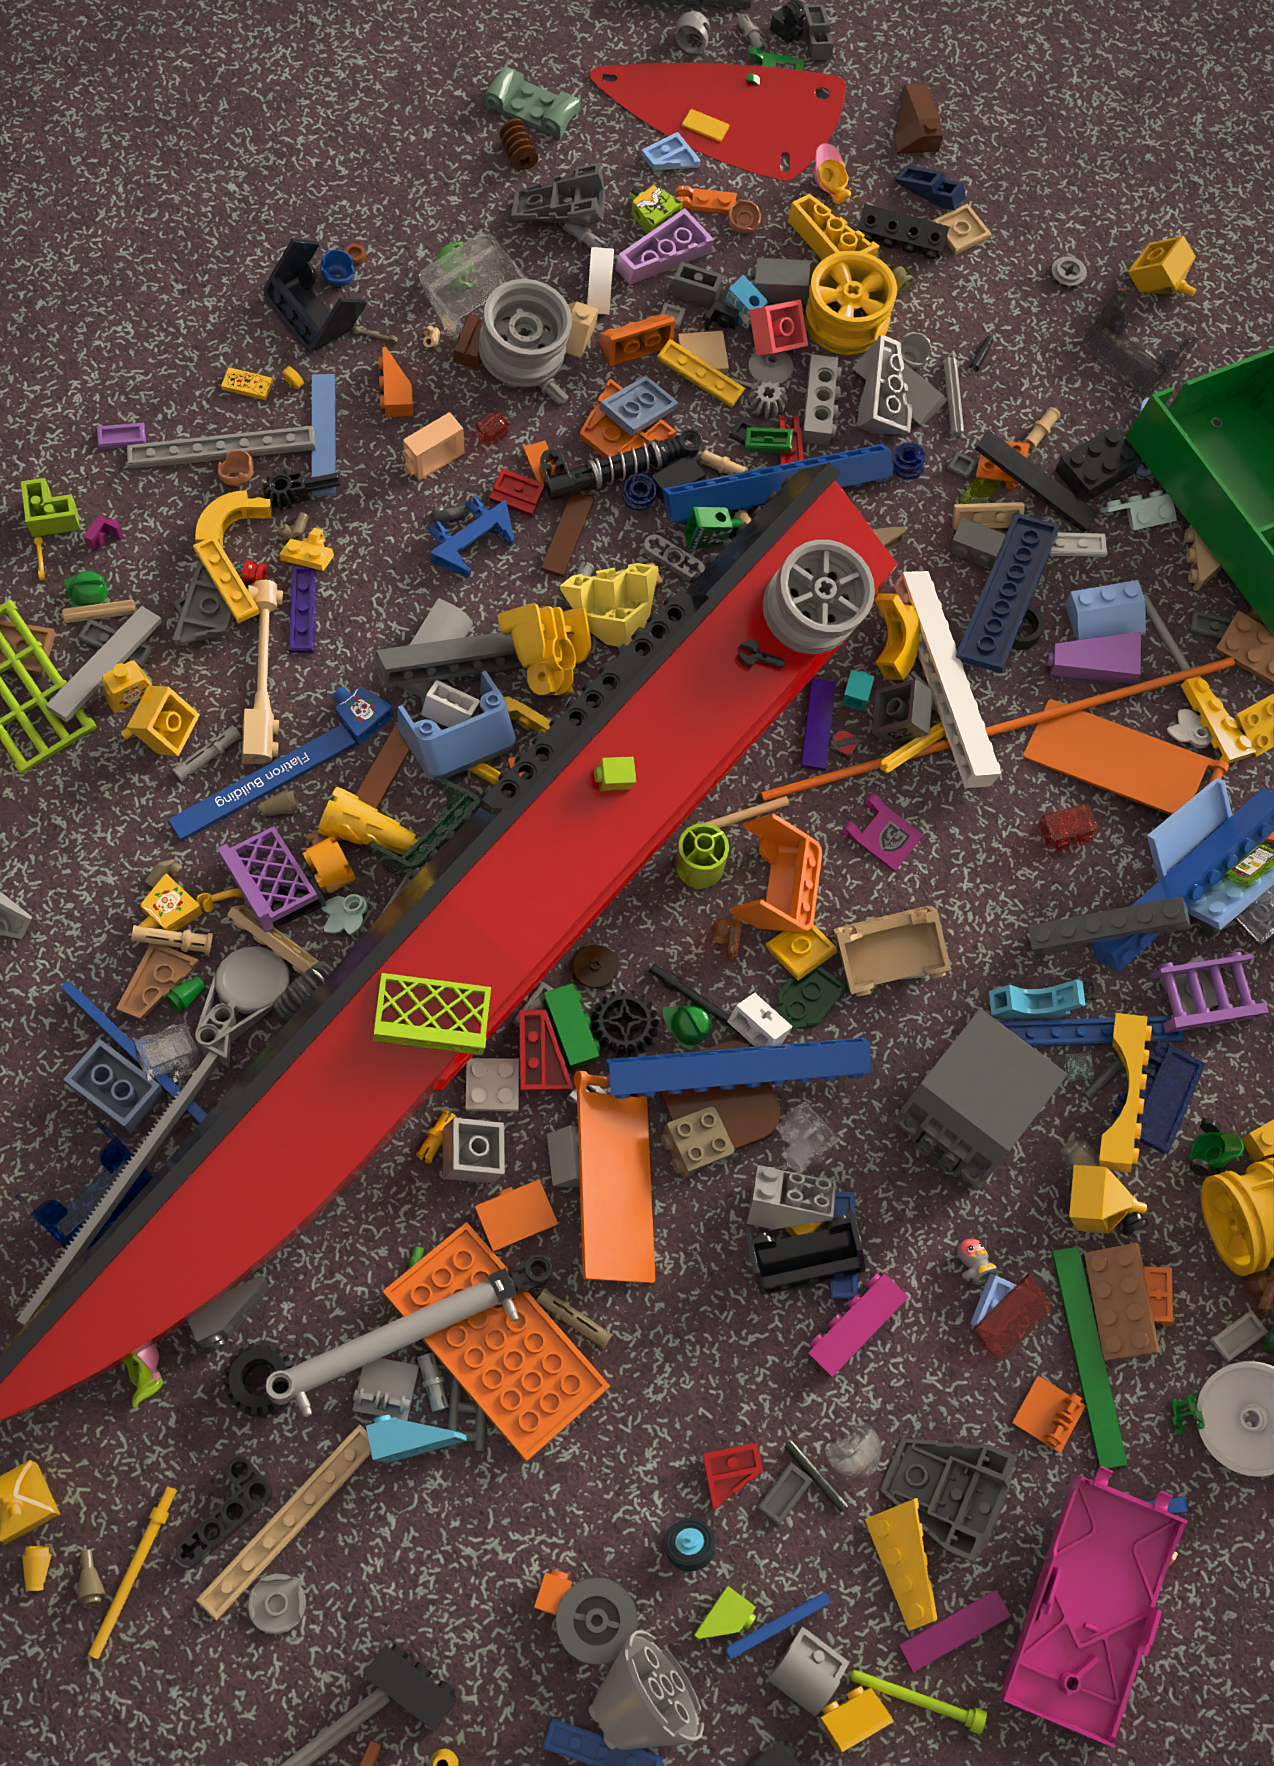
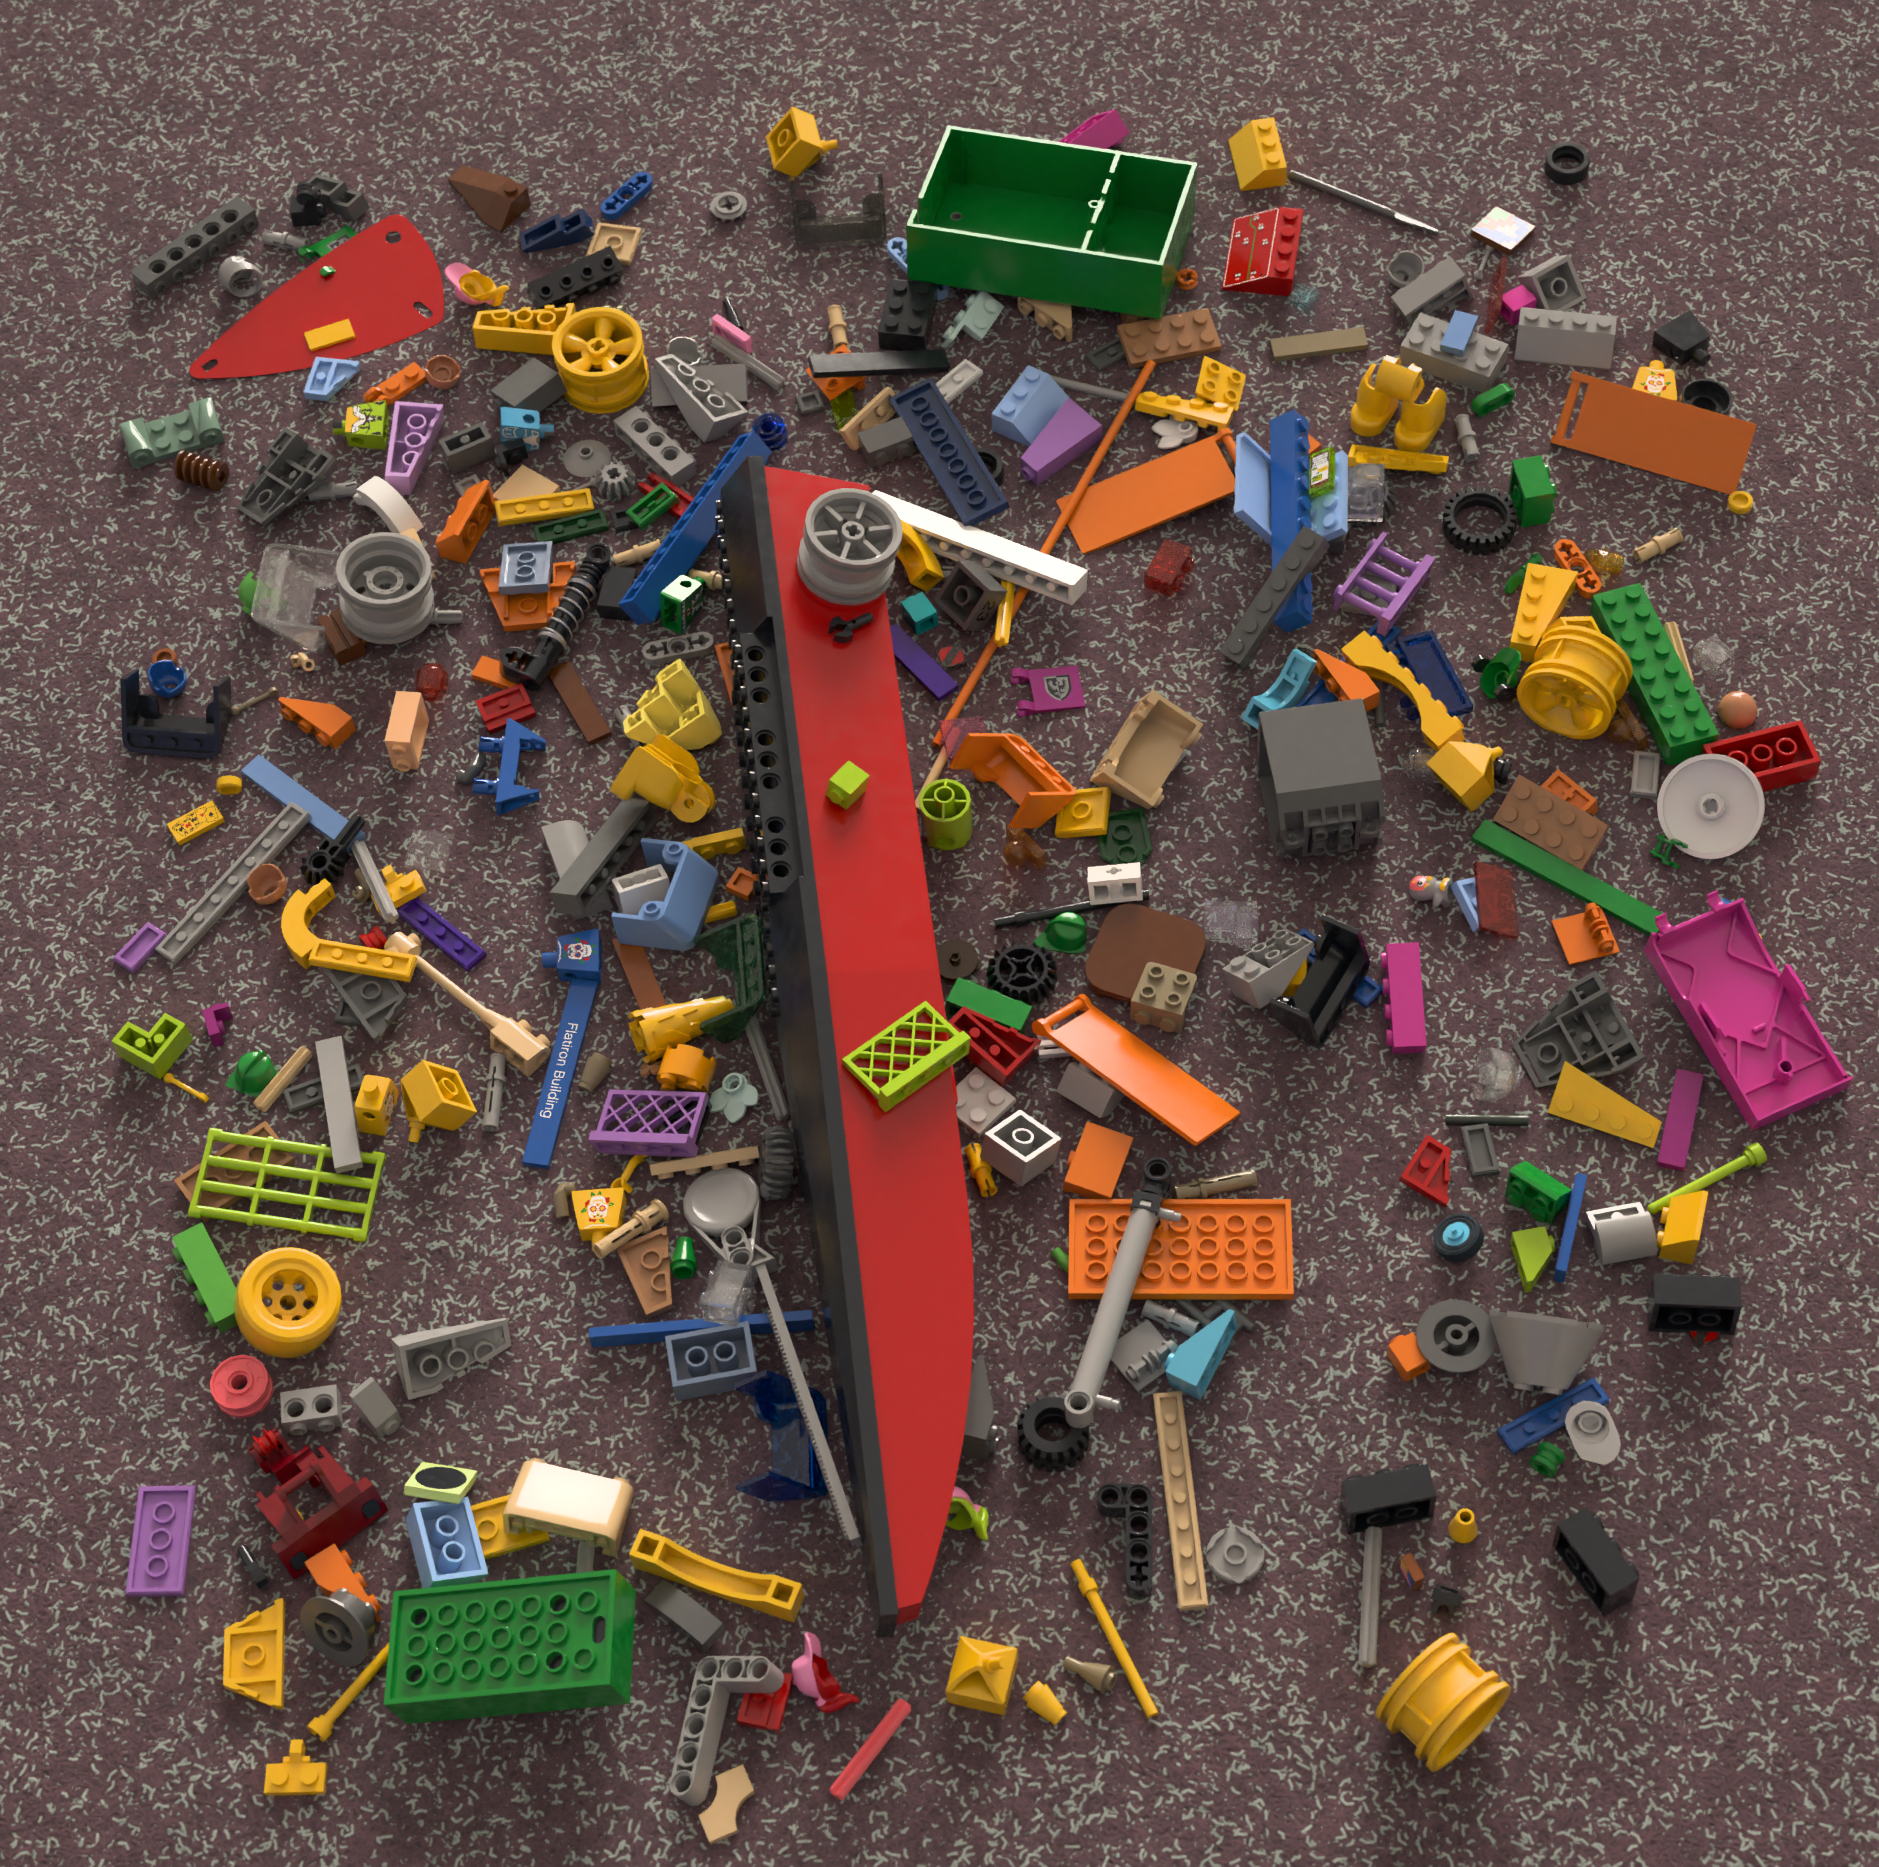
camera: 35 degrees left, 10 degrees down
(296, 532) = (374, 881): none -> light grey axle
(361, 544) = (428, 850): none -> clear piece
(643, 483) = (600, 635): clear blue wheel -> none
(704, 405) = (572, 527): none -> dark green tile
(738, 1066) = (1134, 919): blue brick -> none
(778, 327) = (568, 422): coral brick -> none
(784, 1573) = (1536, 1192): none -> green slope
(787, 806) = (955, 731): none -> clear pink piece
(963, 365) = (731, 333): none -> bright pink tile
(1013, 196) = (627, 188): none -> blue beam
(1094, 1044) = (1346, 680): none -> orange slope

